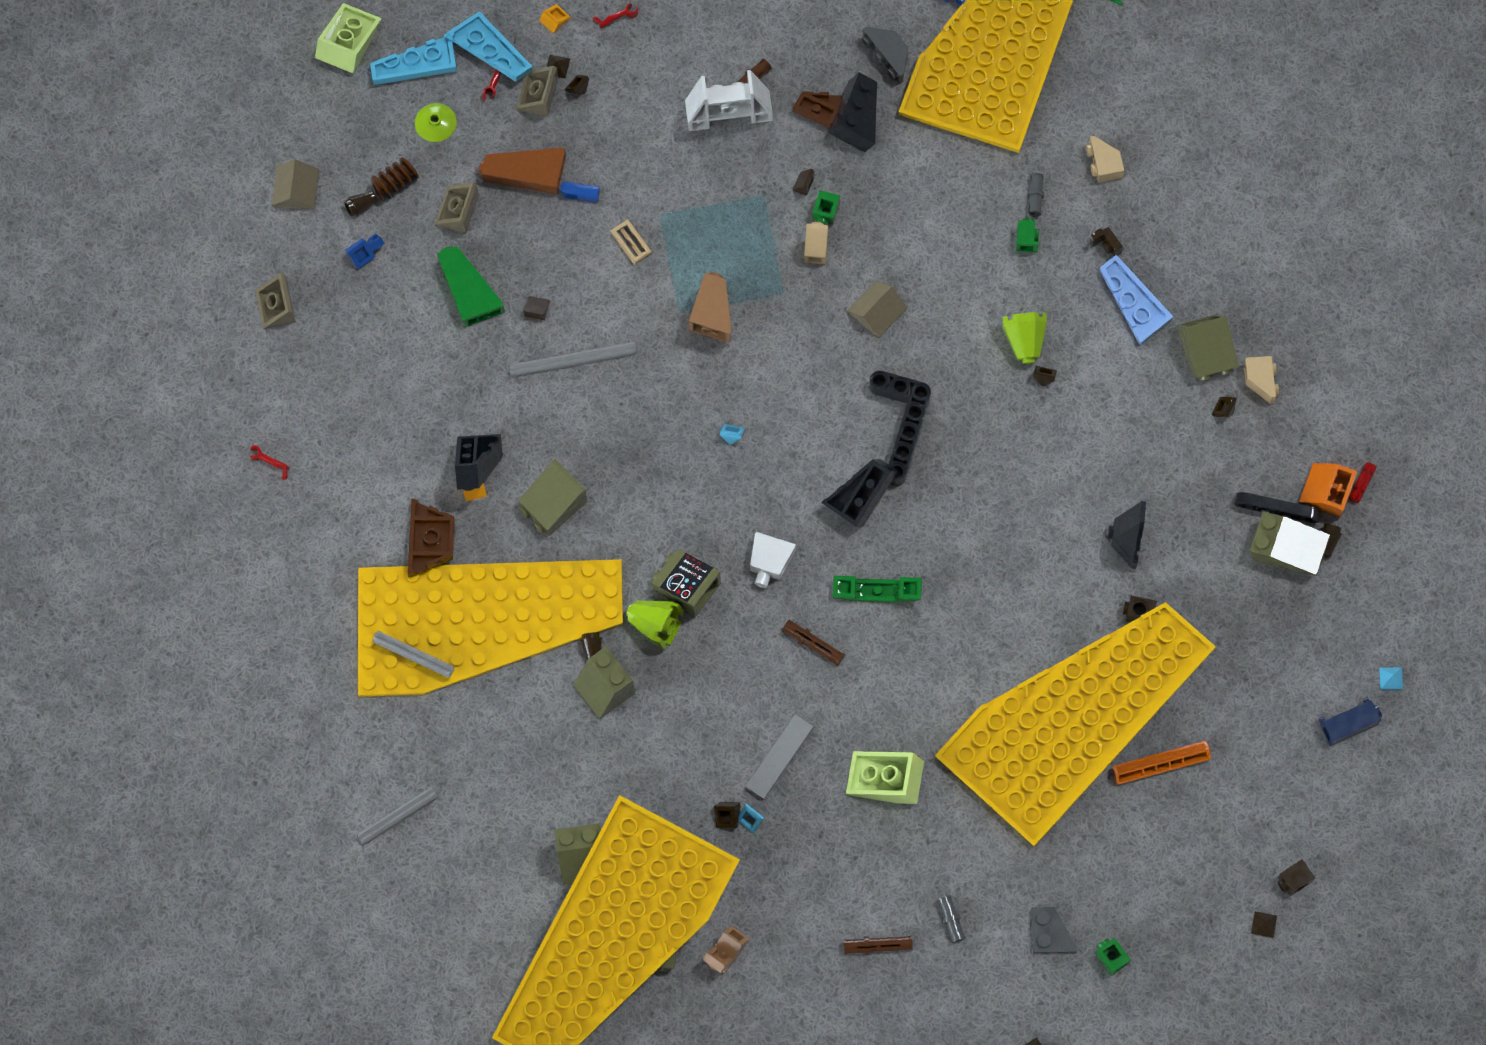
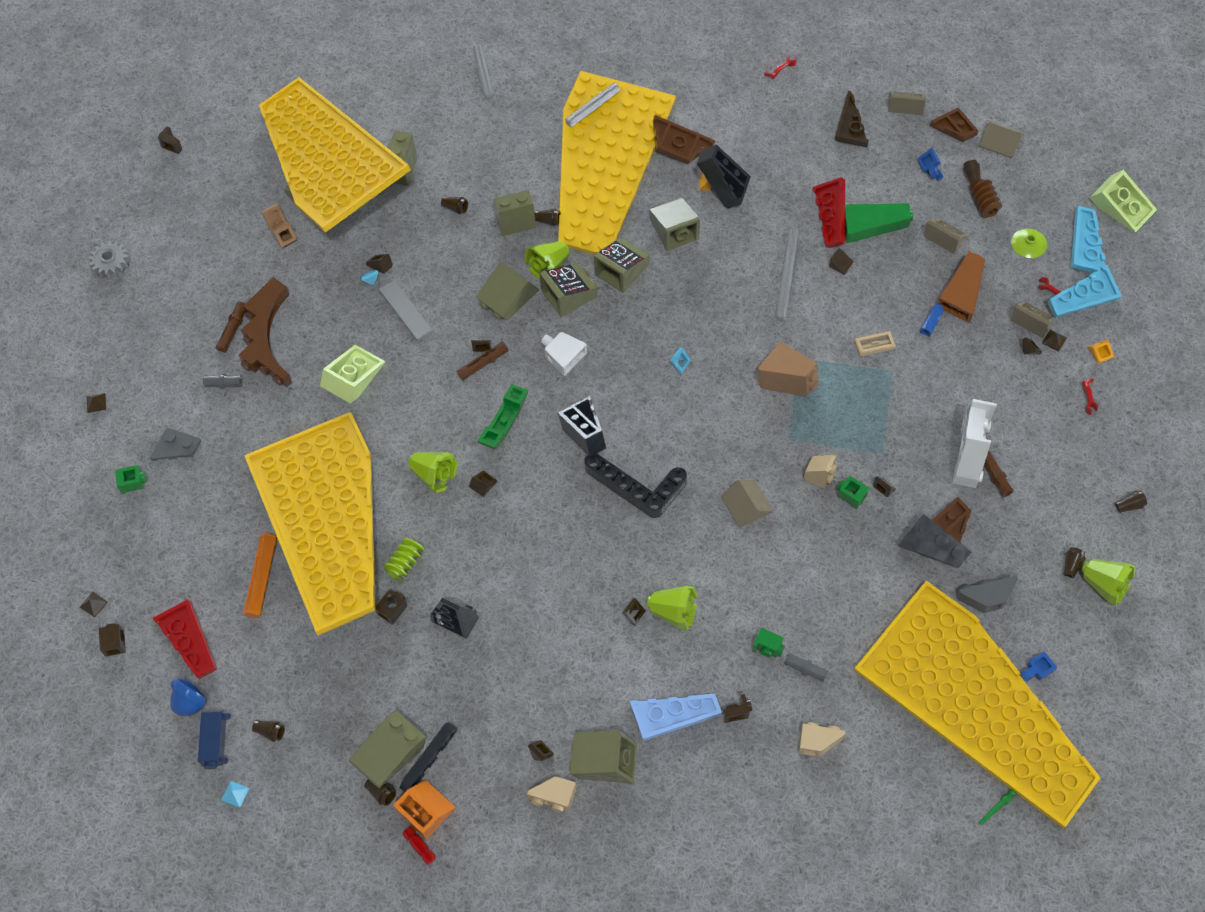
camera: 110 degrees right, 10 degrees down
(294, 239) = (955, 125): none -> reddish brown wing
(339, 354) = (850, 127): none -> dark brown wing
(464, 337) = (831, 203): none -> red wing
(612, 762) = (456, 204): none -> dark brown cone
(630, 536) = (620, 264): none -> olive slope
(716, 648) = (505, 292): none -> olive slope
(791, 652) = (481, 345): none -> dark brown slope
(902, 892) = (256, 333): none -> reddish brown arch
(960, 581) = (482, 483): none -> dark brown slope
(970, 635) = (433, 466): none -> lime cone
(1084, 620) = (402, 558): none -> lime piece
(1255, 808) = (186, 635): none -> red wing
(1316, 673) = (271, 730): none -> dark brown cone
(1323, 768) = (186, 698): none -> blue piece

